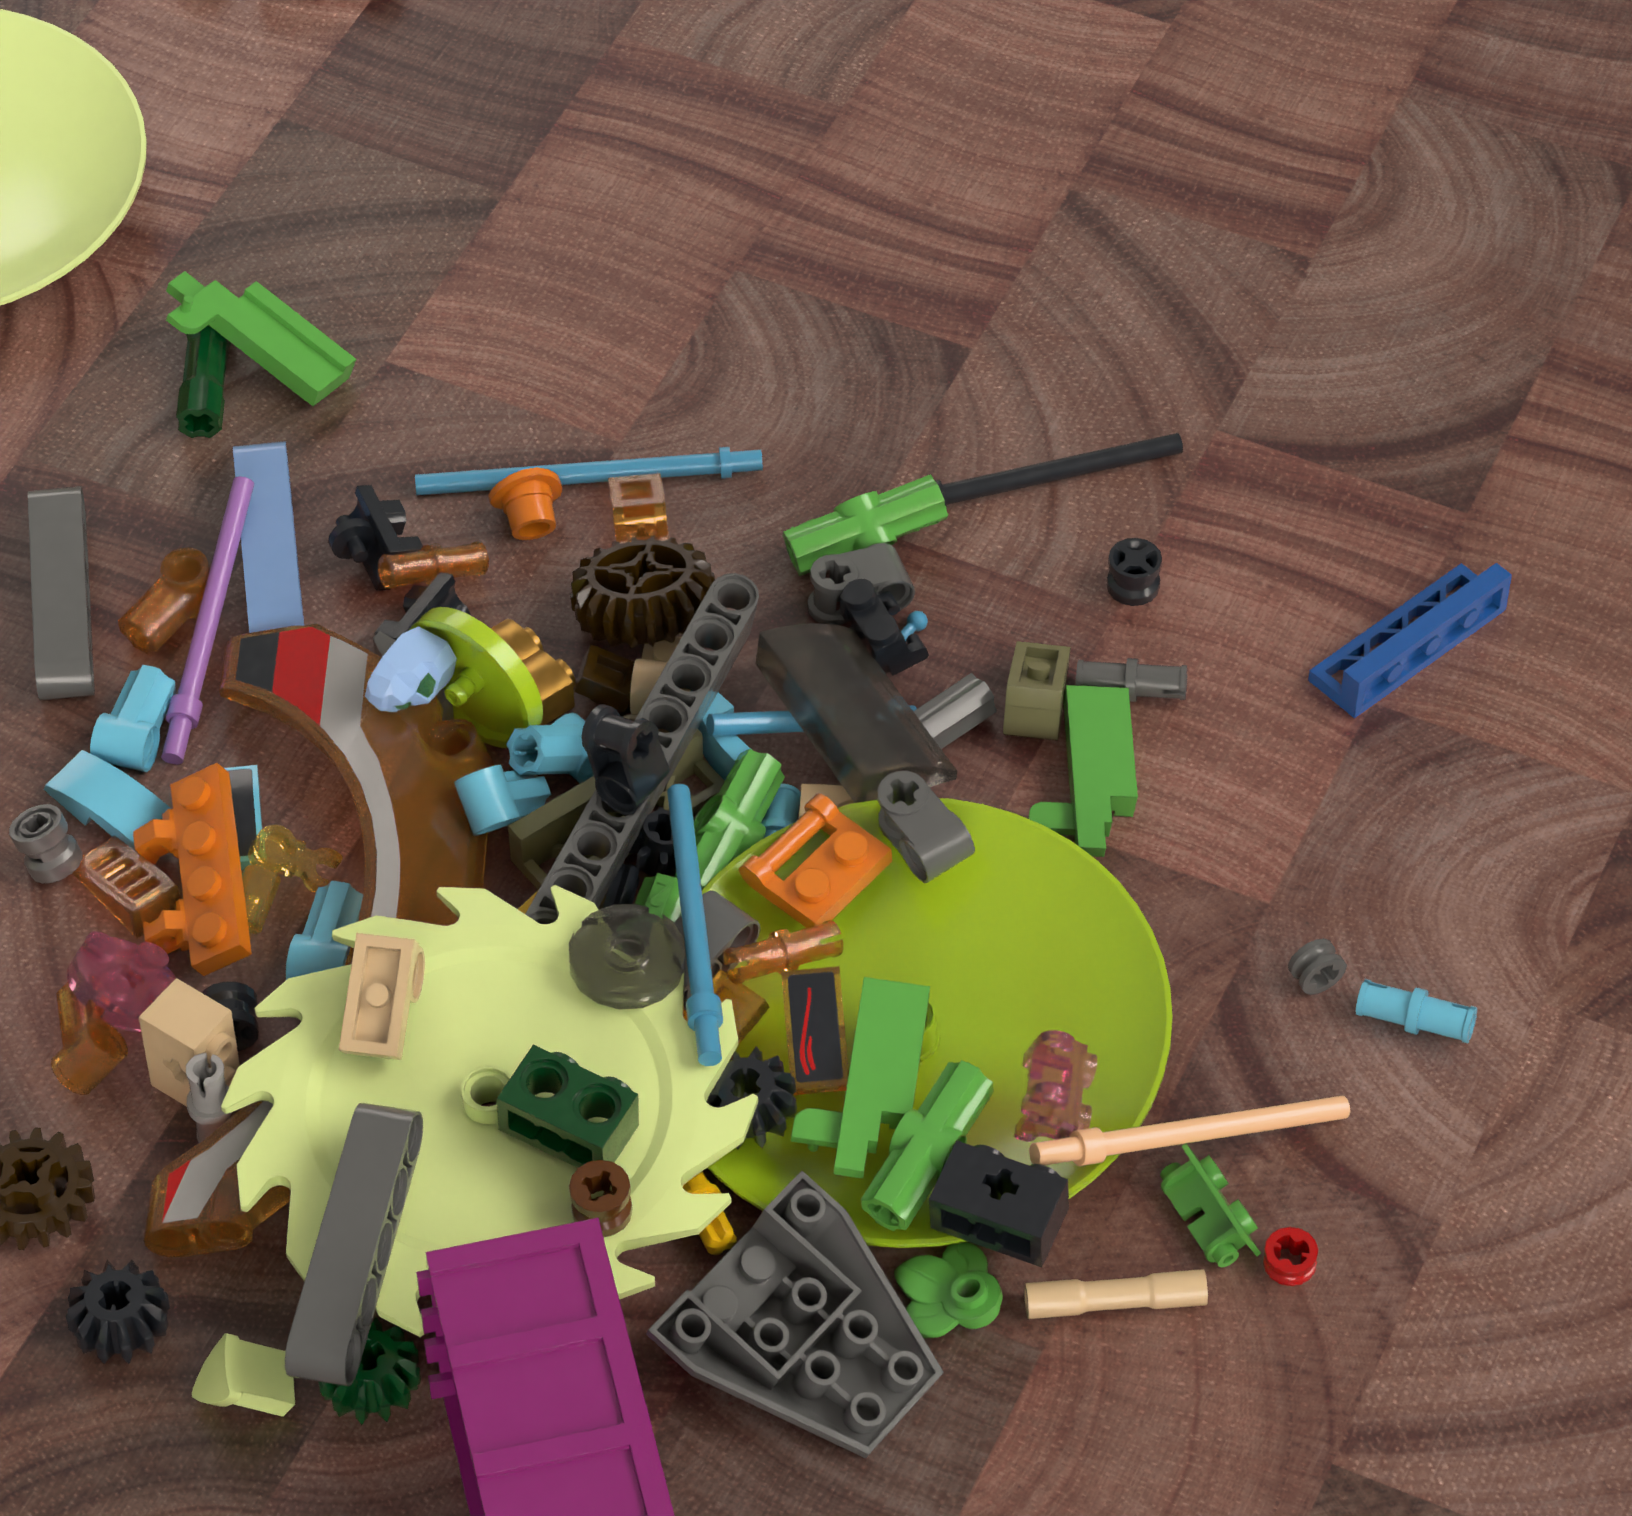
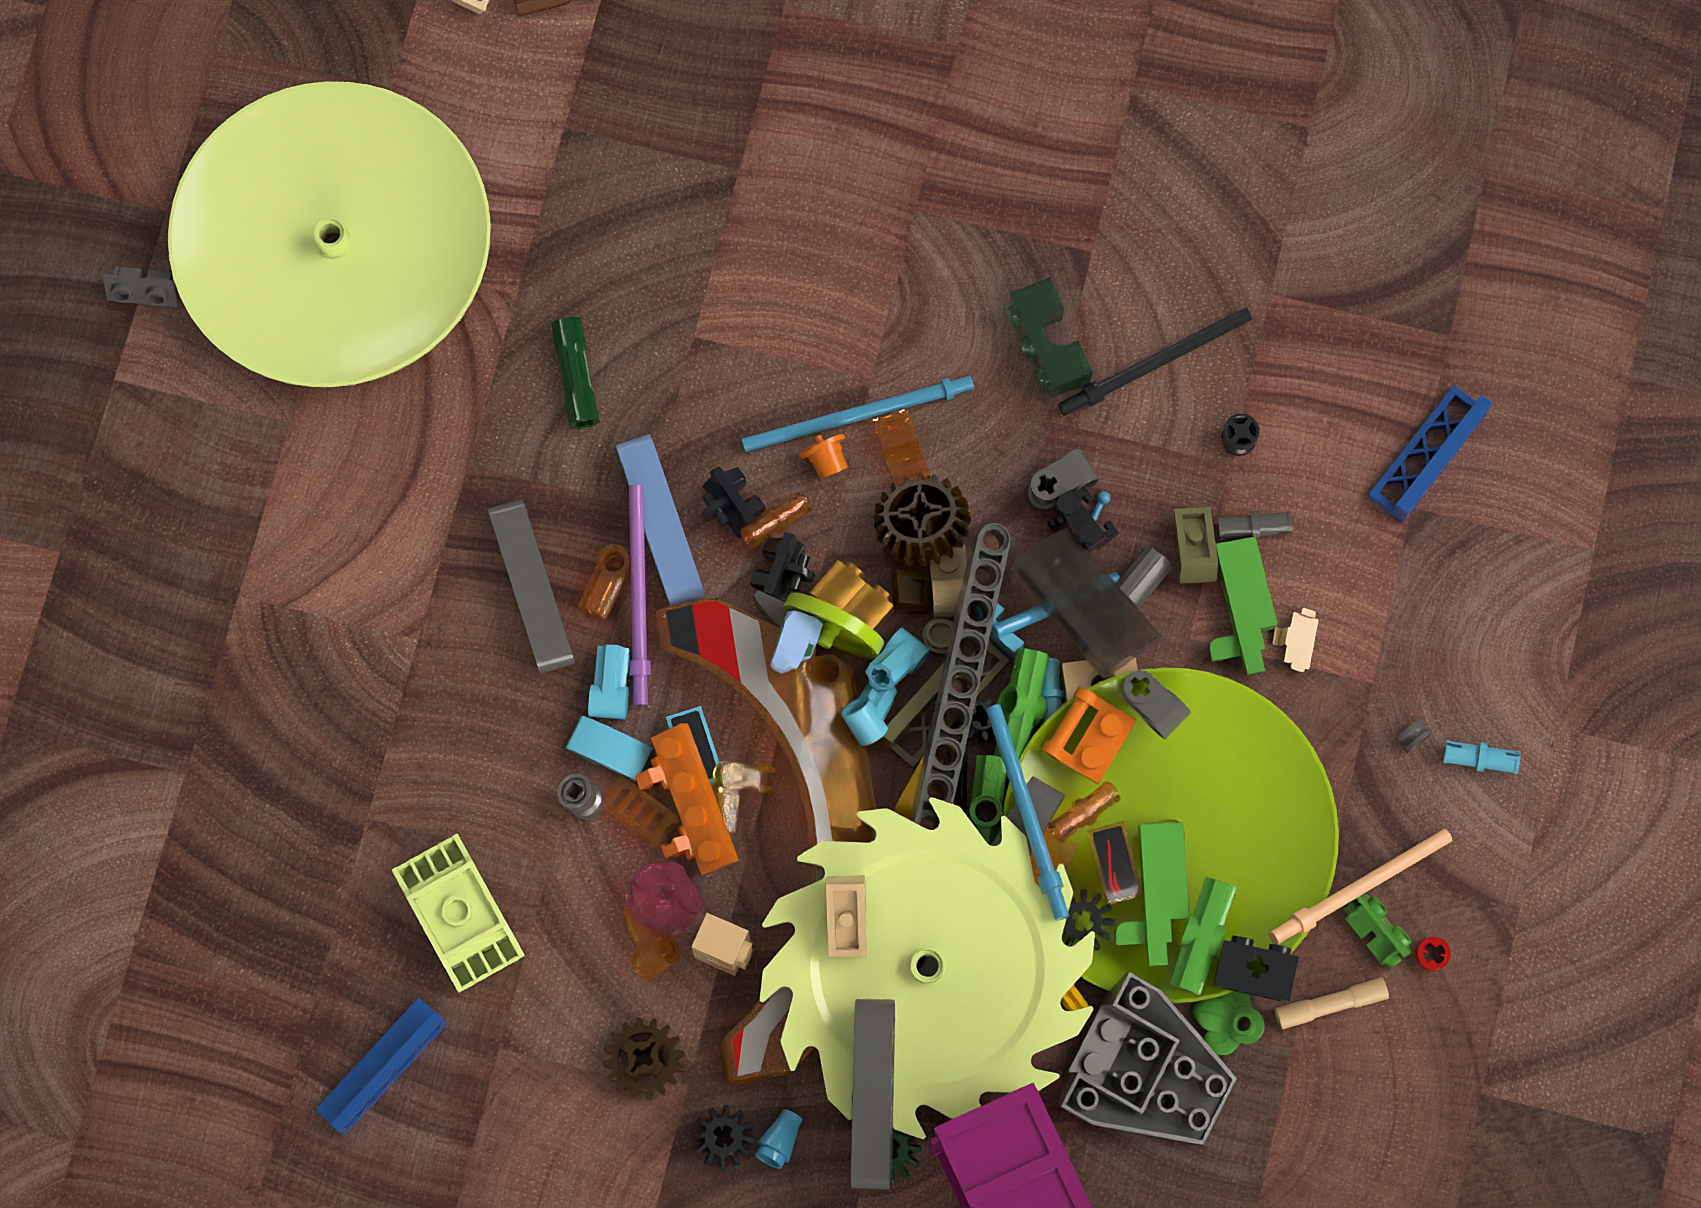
camera: 10 degrees left, 25 degrees up
(195, 1332) = (778, 1141): none -> dark azure cone
(206, 1094) = (738, 977): light grey pin -> none
(241, 1001) = (735, 905): black wheel -> none
(246, 1377) = (814, 1170): yellowish green tile -> none
(265, 332) = (611, 342): bright green piece -> none
(315, 949) = (781, 841): medium azure piece -> none
(560, 1121) = (982, 987): dark green brick -> none
(611, 1208) = (1010, 1039): reddish brown wheel -> none
(623, 758) = (957, 702): black piece -> none
(626, 957) = (1002, 849): clear smoke tile -> none
(866, 522) = (1056, 433): bright green piece -> none
(874, 391) = (1058, 367): none -> clear green arch
(1055, 1086) = (1276, 882): piece -> none
(1168, 828) = (1298, 638): none -> piece

